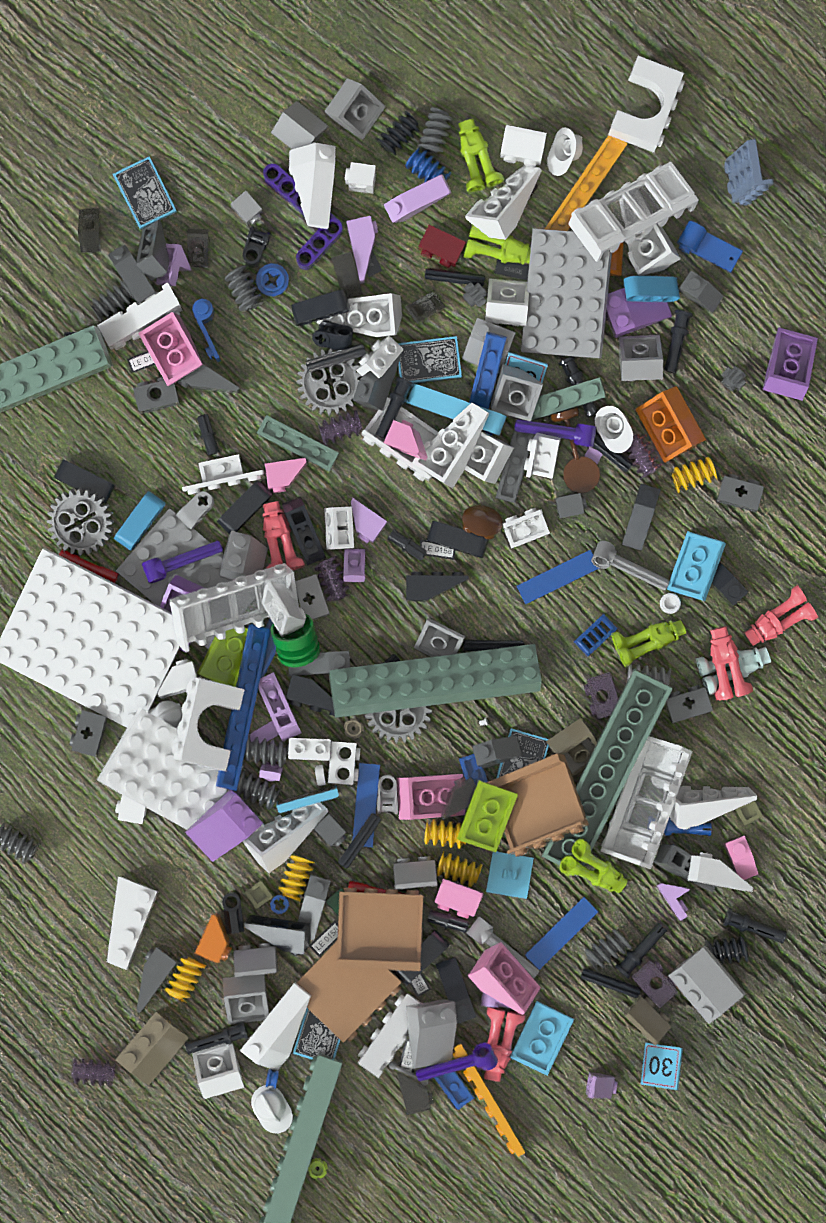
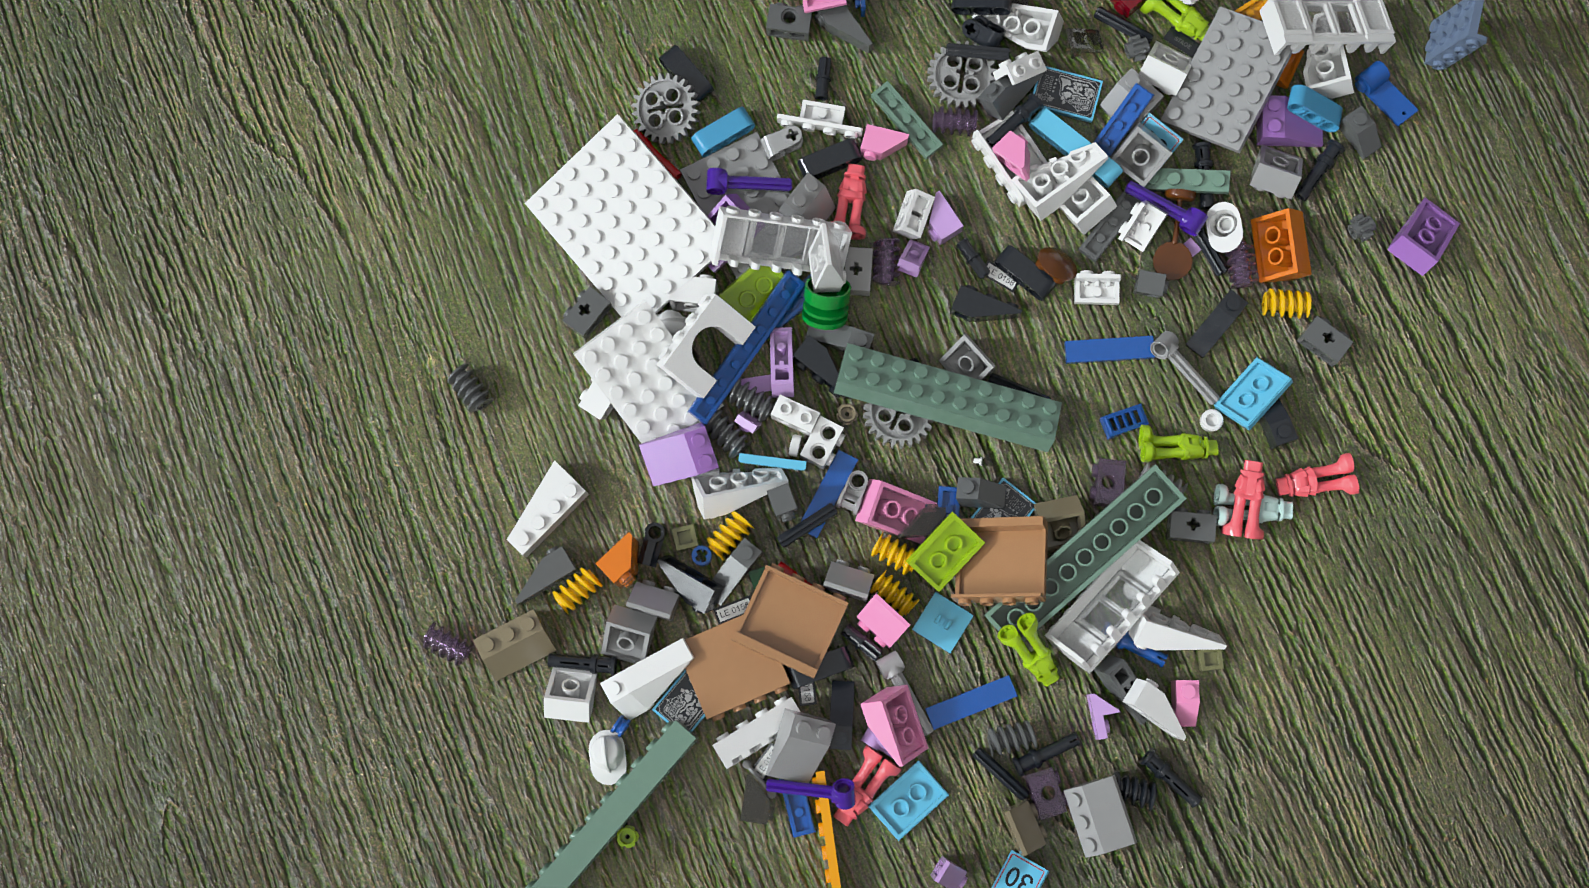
camera: 25 degrees right, 5 degrees down
(303, 530) = (877, 204): black slope -> none

